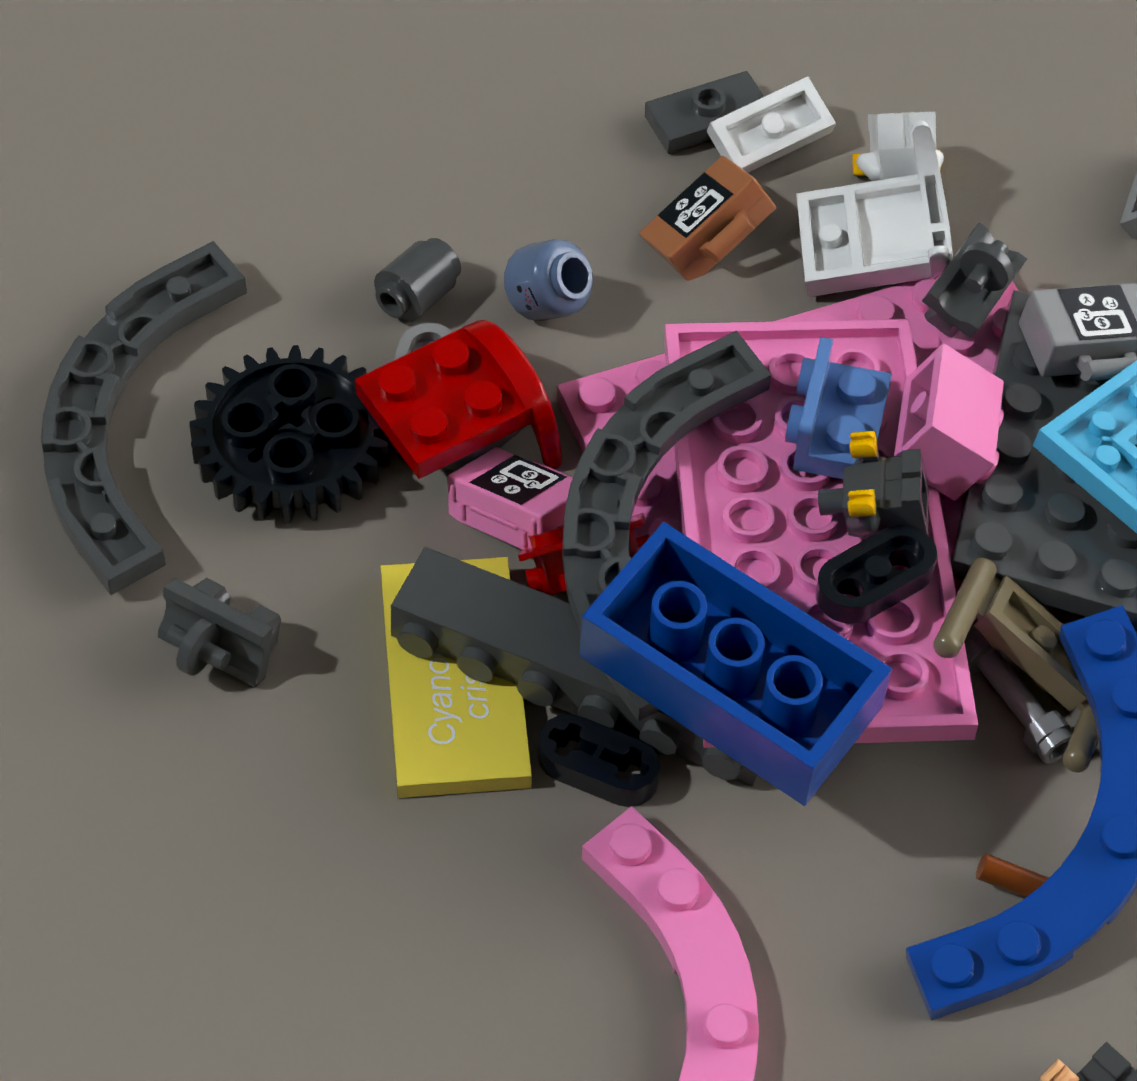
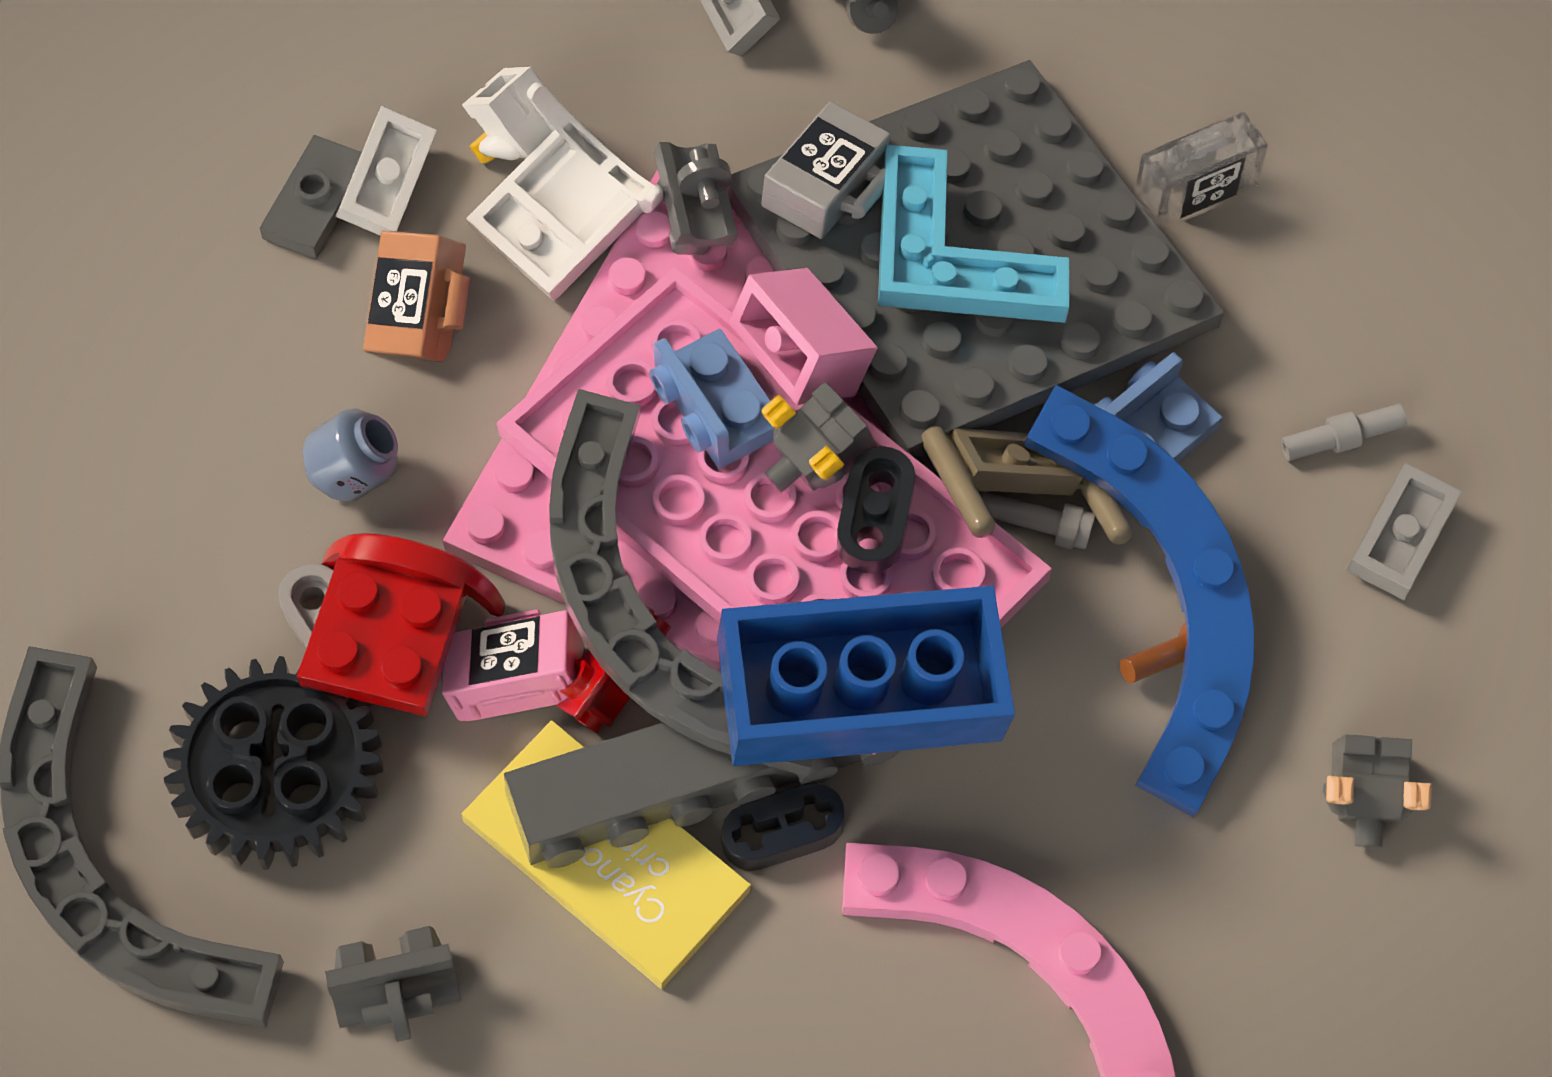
camera: 45 degrees left, 10 degrees up
(417, 279) = (235, 539): dark grey brick -> none

